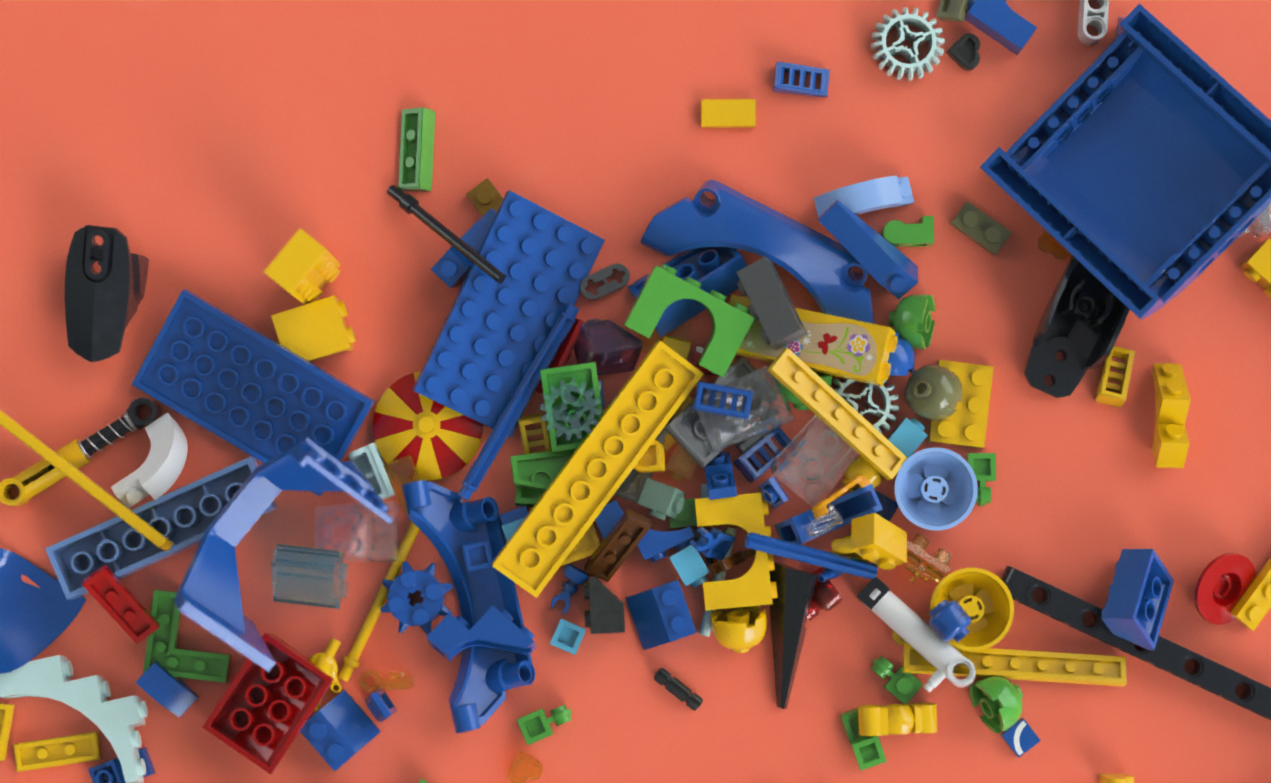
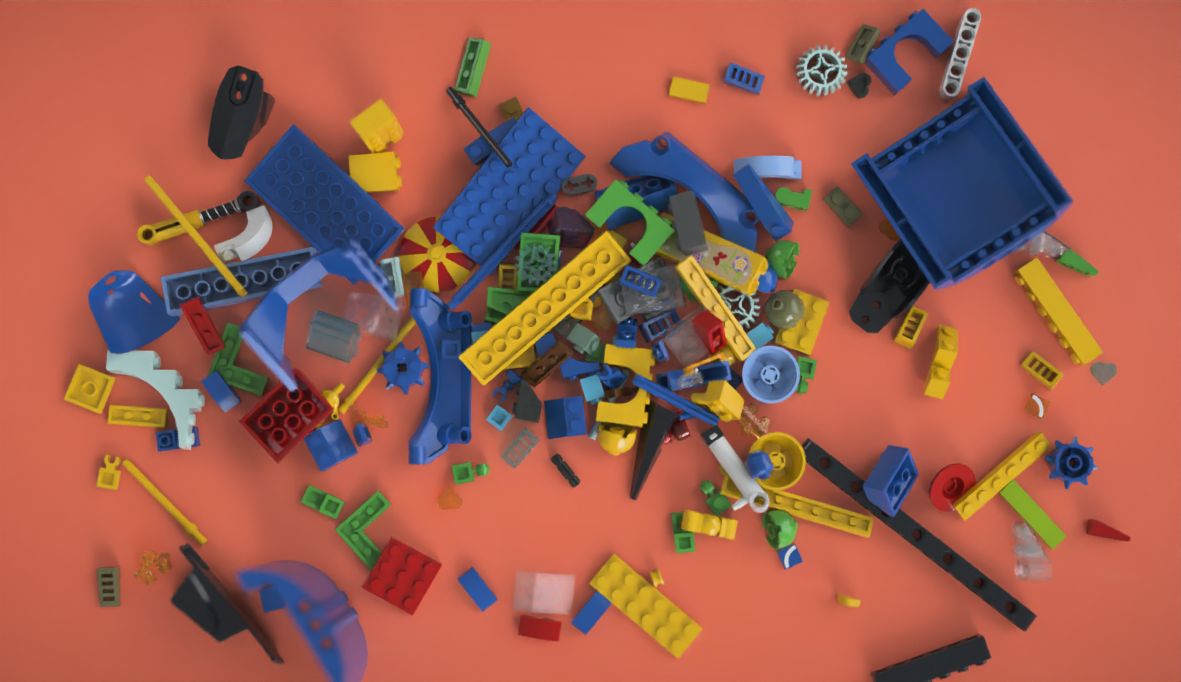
camera: 10 degrees right, 0 degrees up
(492, 631) = (448, 401): blue arch -> none
(617, 651) = (531, 436): none -> clear light blue slope
(837, 448) = (710, 331): none -> red slope

